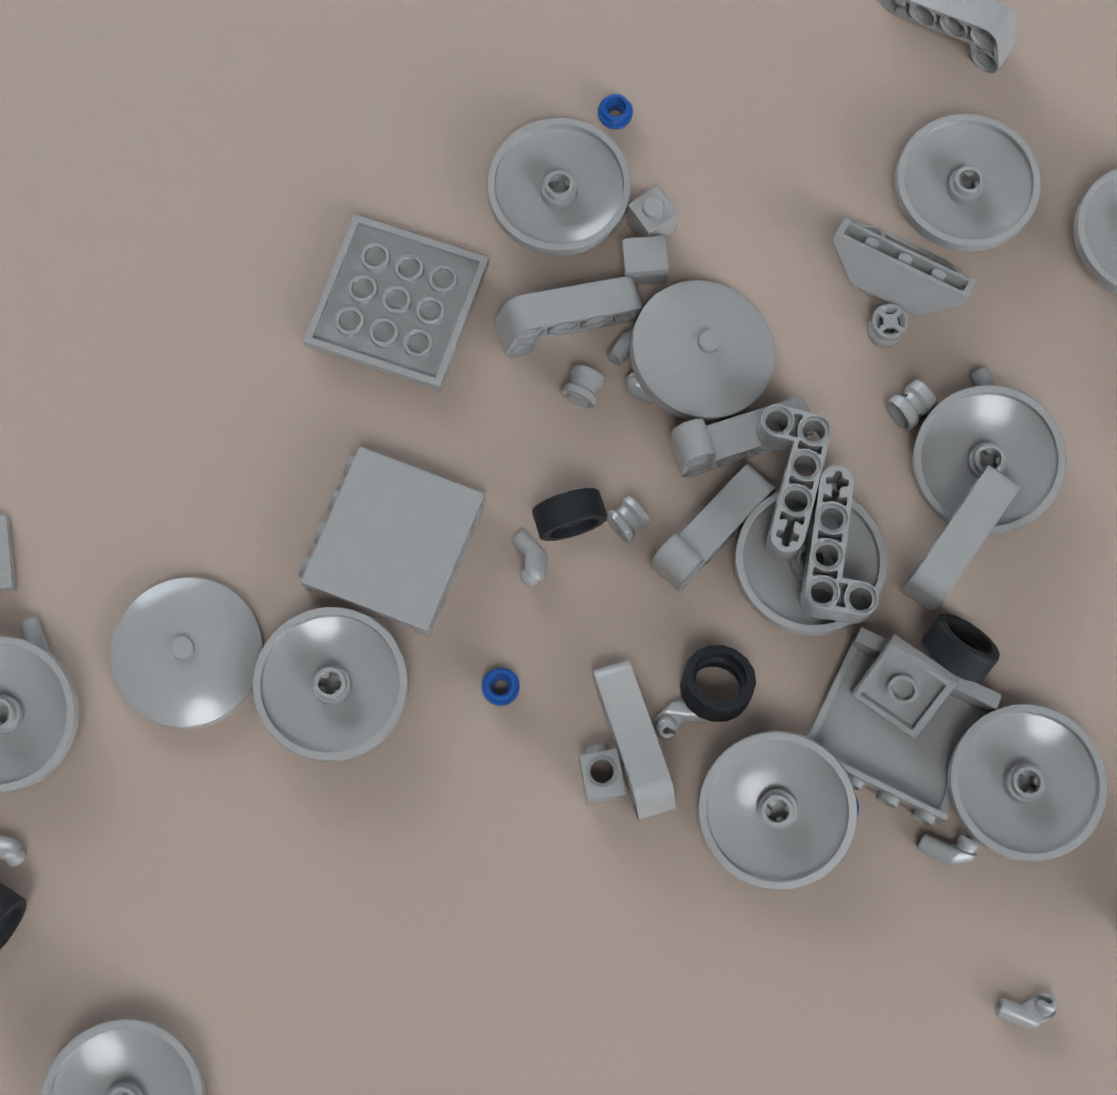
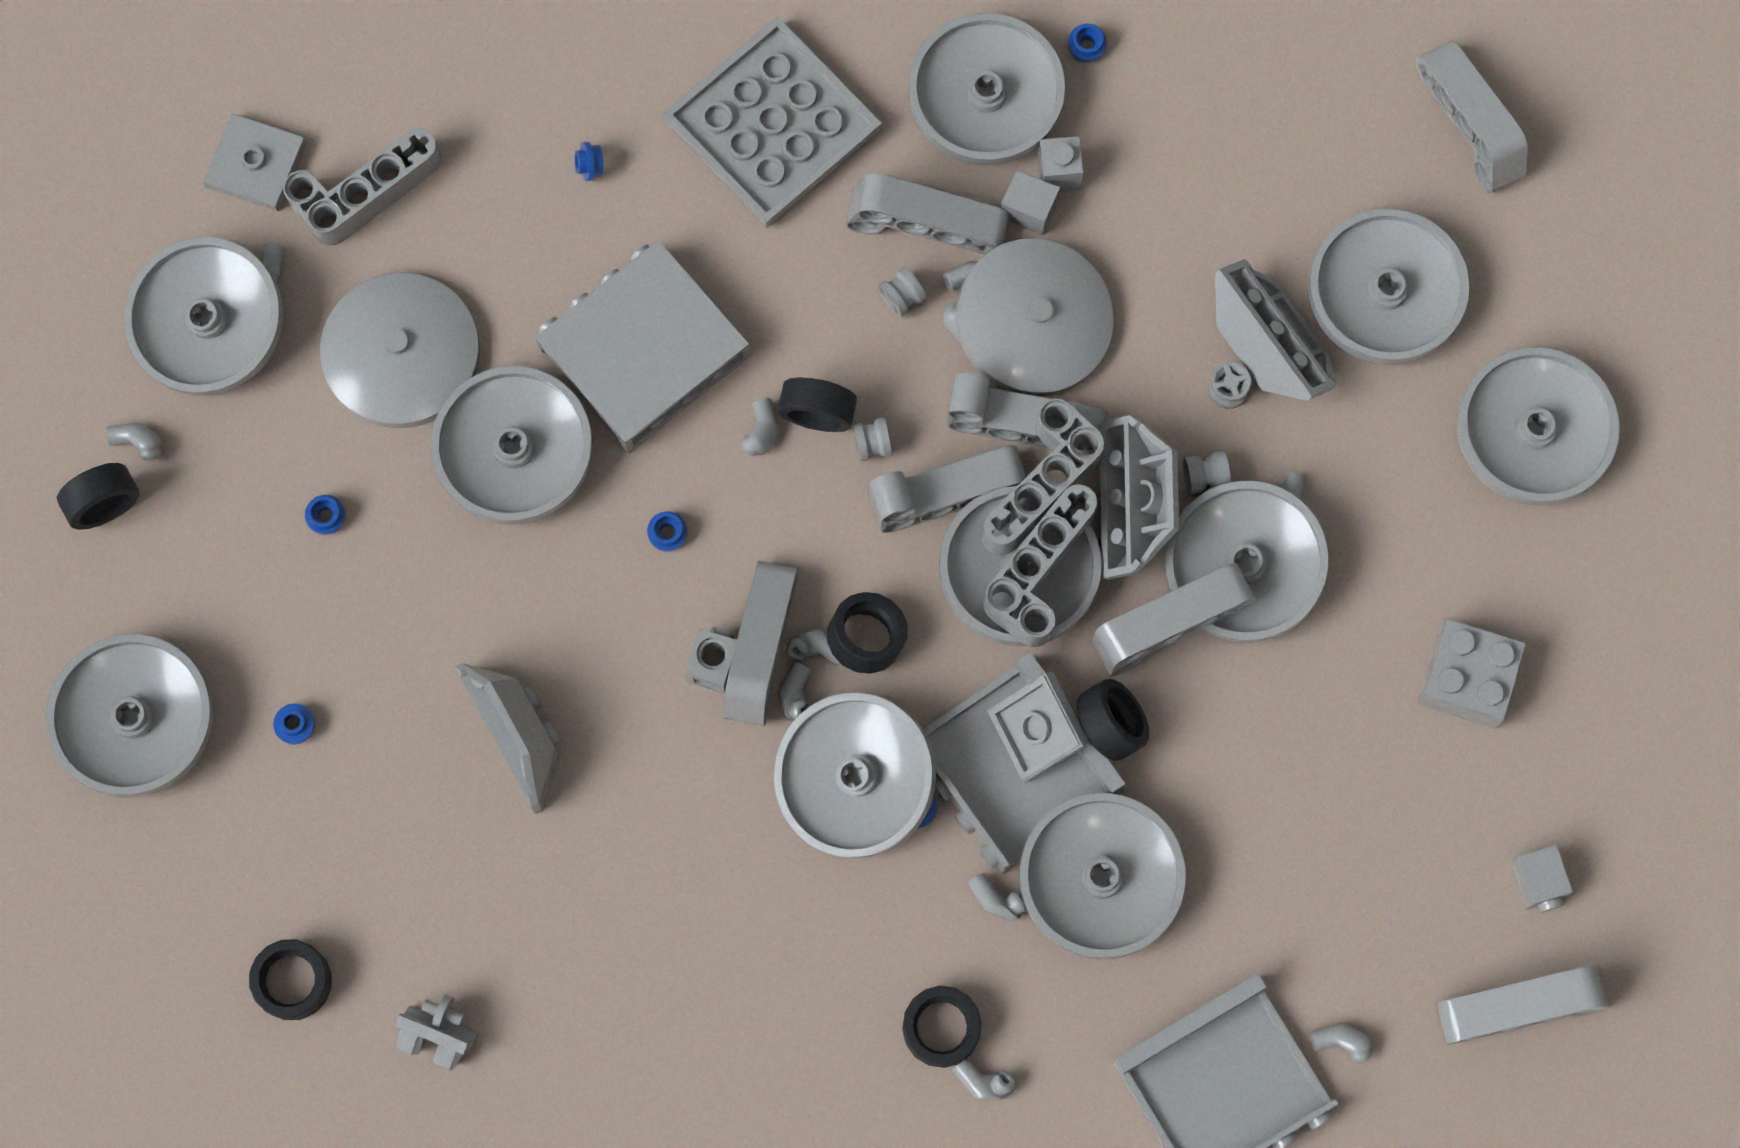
camera: 30 degrees right, 0 degrees up
(80, 524) = (364, 180): none -> light grey beam
(188, 825) = (322, 503): none -> blue plate
(262, 411) = (589, 161): none -> blue plate
(285, 1028) = (298, 735): none -> blue plate
(468, 926) = (516, 729): none -> light grey wedge
(682, 769) = (791, 692): none -> light grey arm
(878, 451) = (1136, 495): none -> light grey wedge
(996, 971) = (957, 999): none -> black tyre

